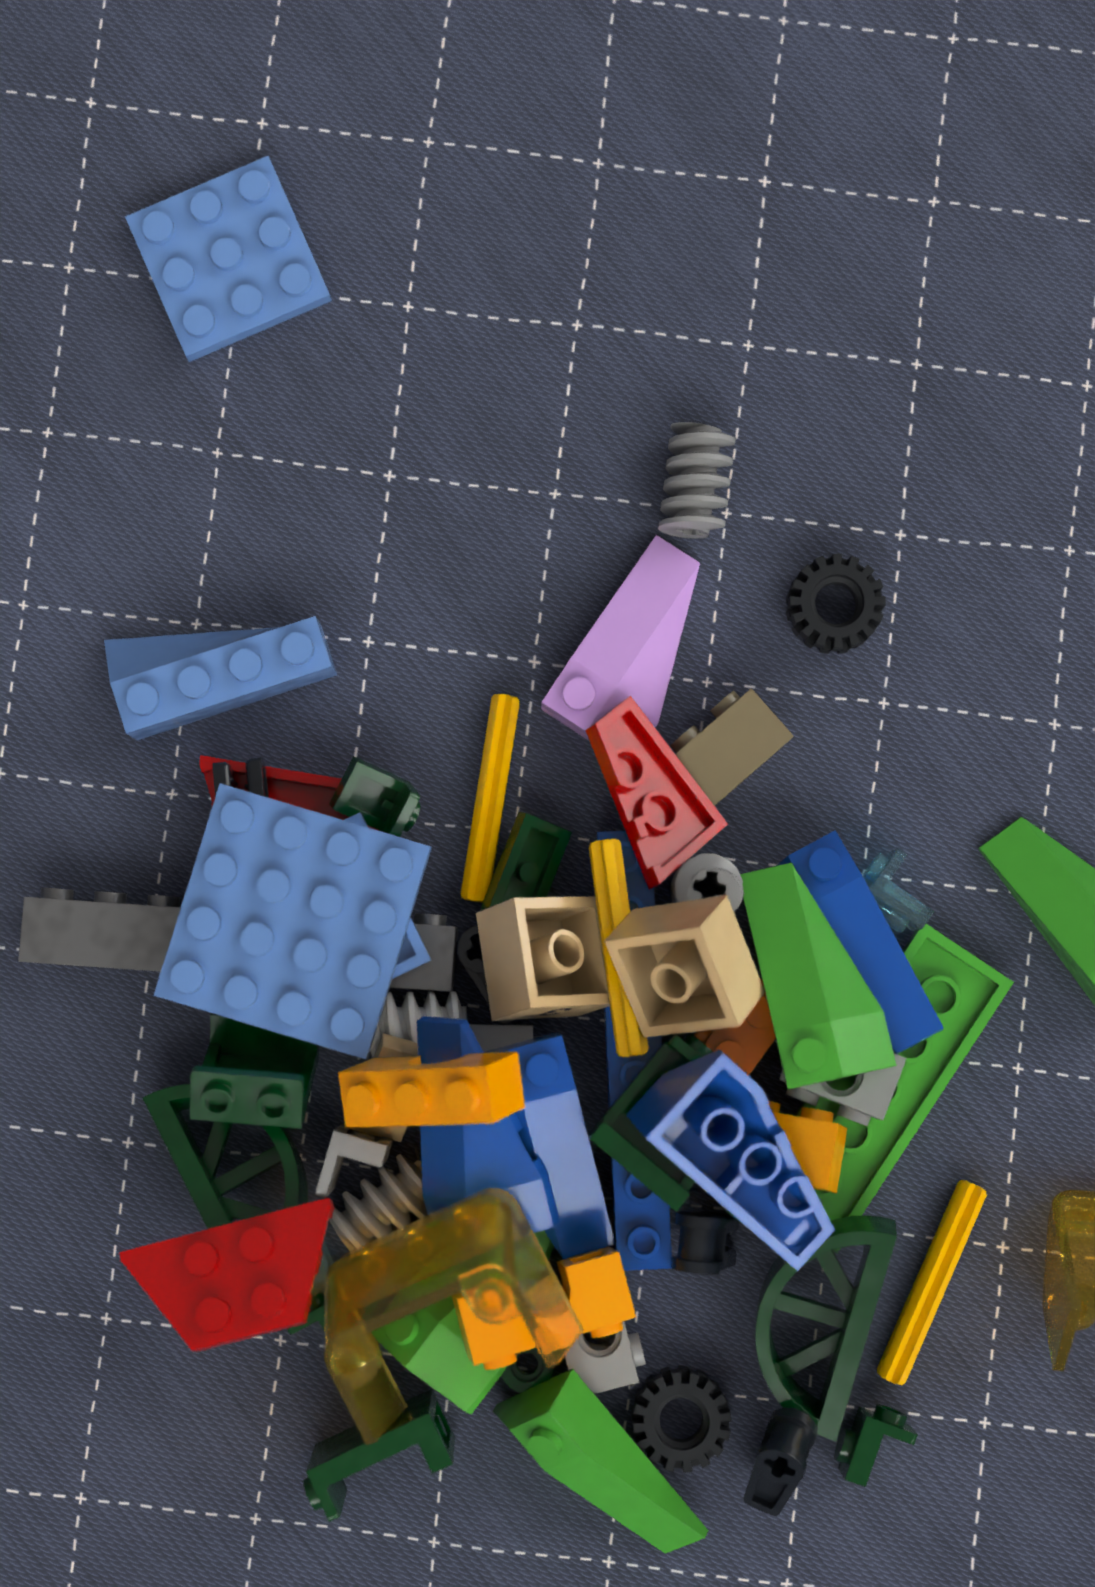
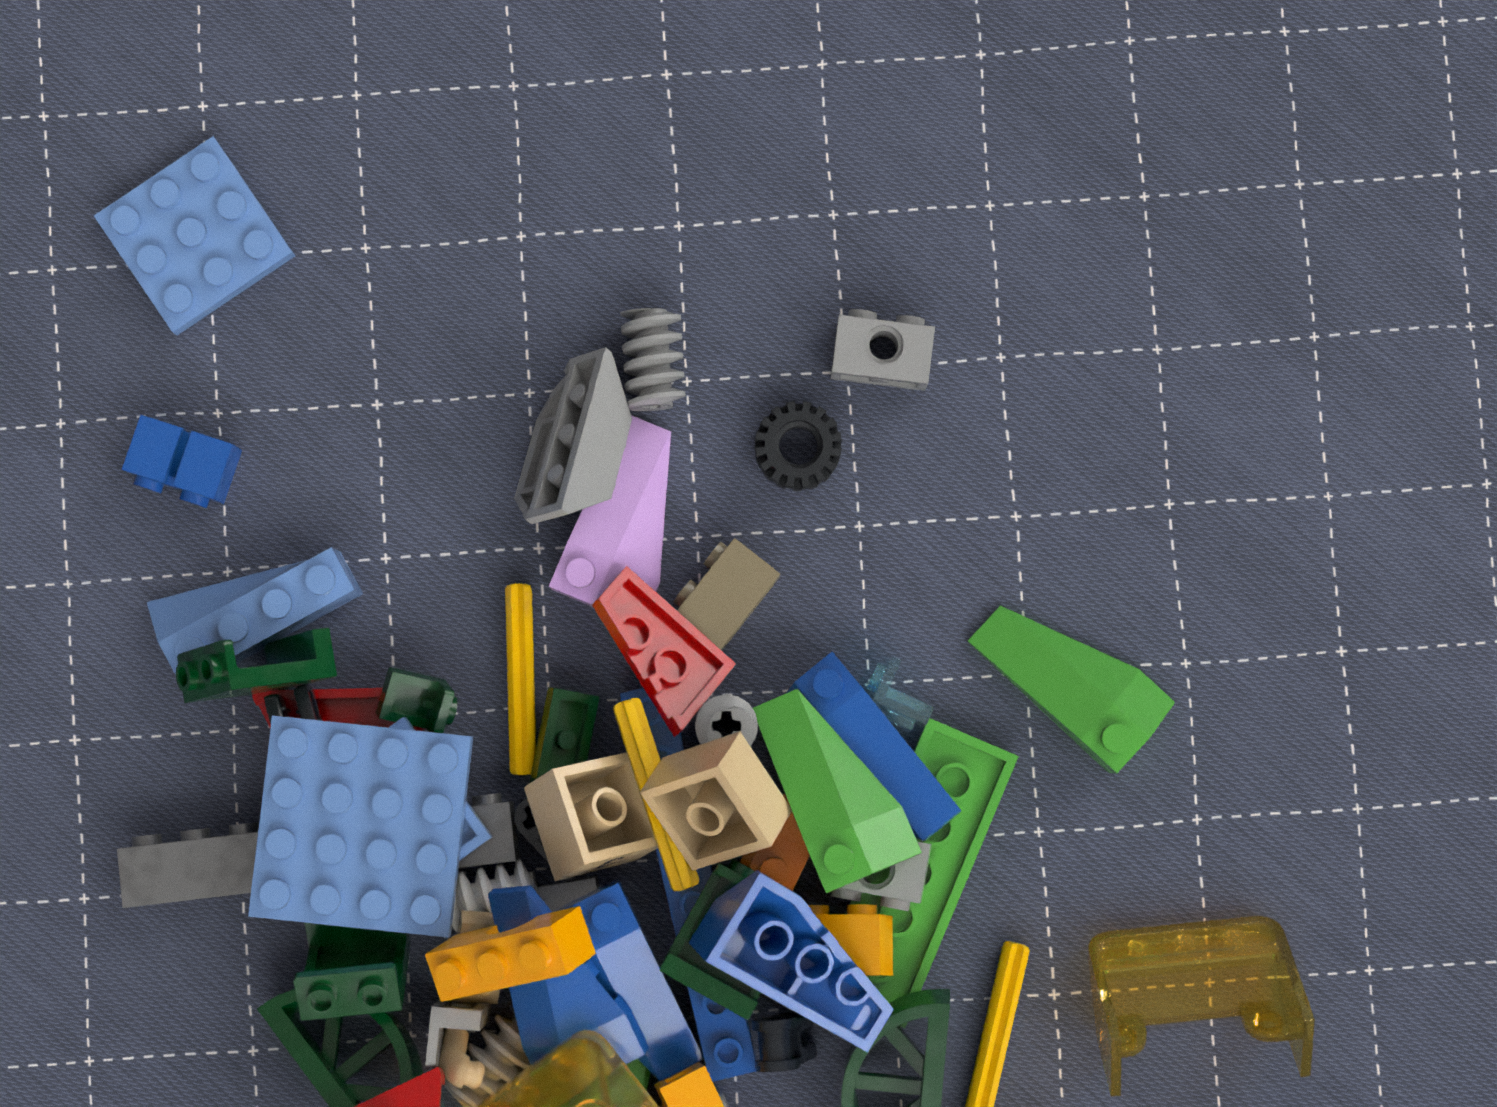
camera: 10 degrees left, 0 degrees up
(166, 727) = (291, 662): none -> dark green panel
(175, 497) = (181, 460): none -> blue piece
(347, 1197) = (455, 1062): none -> tan arm
(600, 550) = (576, 441): none -> light grey wedge
(915, 526) = (856, 363): none -> light grey brick

